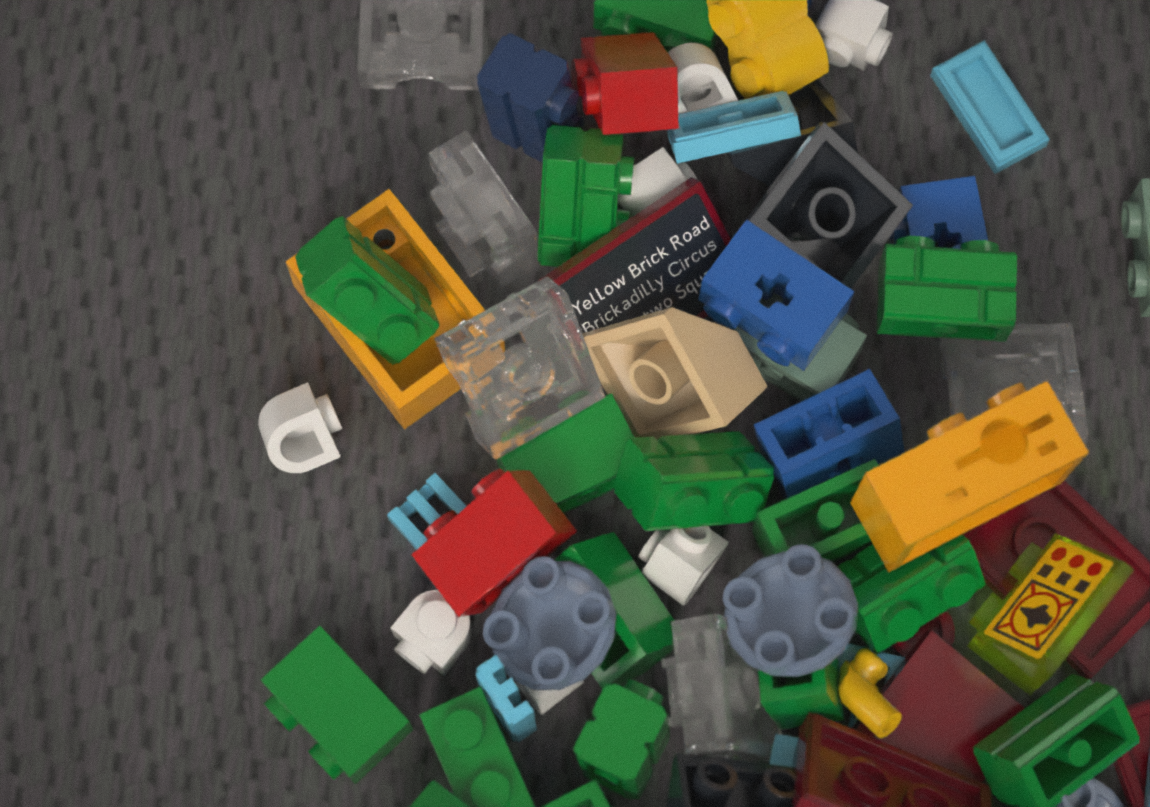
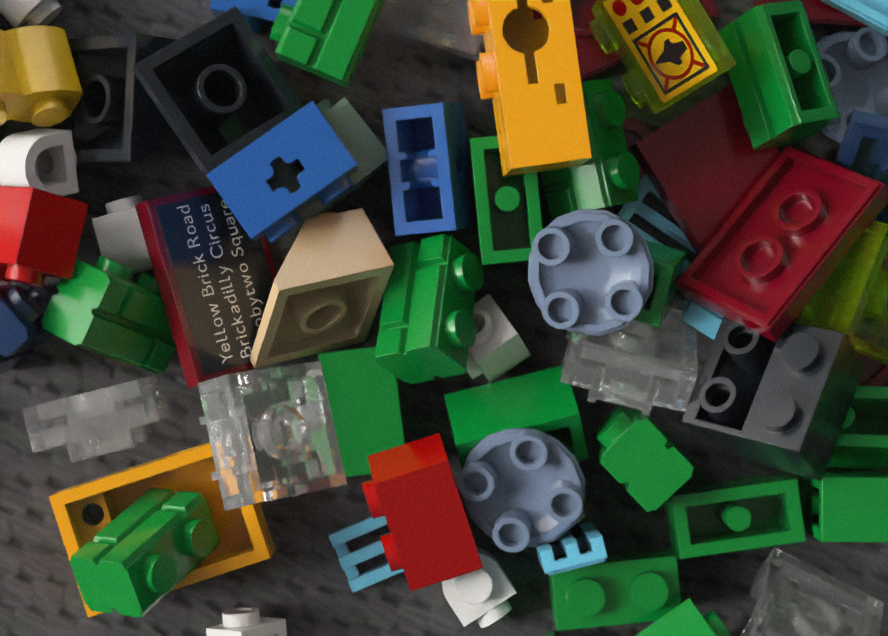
camera: 70 degrees left, 15 degrees up
(734, 126) = (98, 146): medium azure tile -> none
(861, 695) = (671, 230): yellow arm -> none

